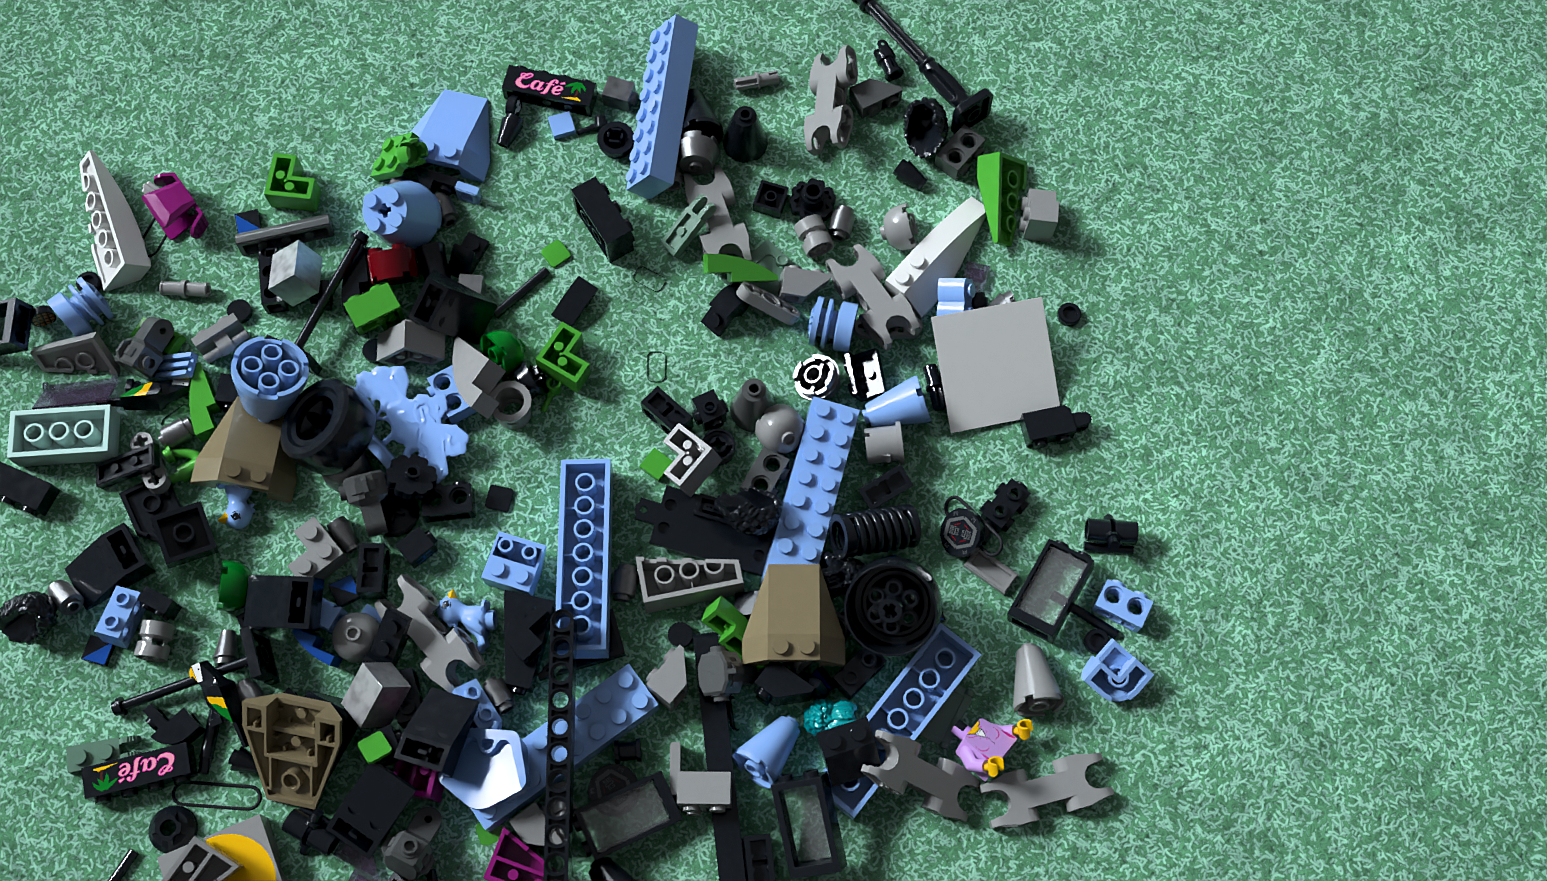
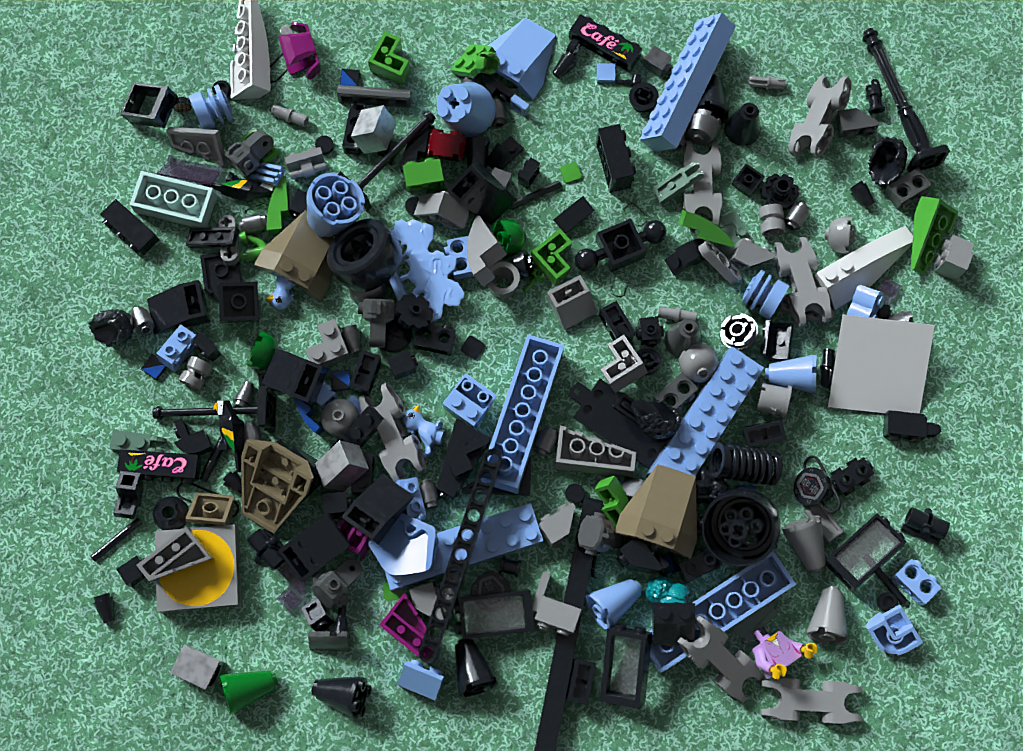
camera: 20 degrees right, 5 degrees up
(111, 820) = (129, 491): none -> black brick
(224, 806) = (211, 509): none -> dark tan slope
(374, 747) = (330, 505): bright green piece -> none
(504, 268) = (528, 173): none -> black piece
(604, 405) = (571, 302): none -> light grey slope
(655, 317) = (625, 235): none -> black brick
(655, 464) = (596, 359): bright green tile -> none
(733, 381) = (676, 314): none -> light grey pin
(979, 600) = (807, 541): none -> light grey cone
(1069, 314) = (951, 343): black tile -> none

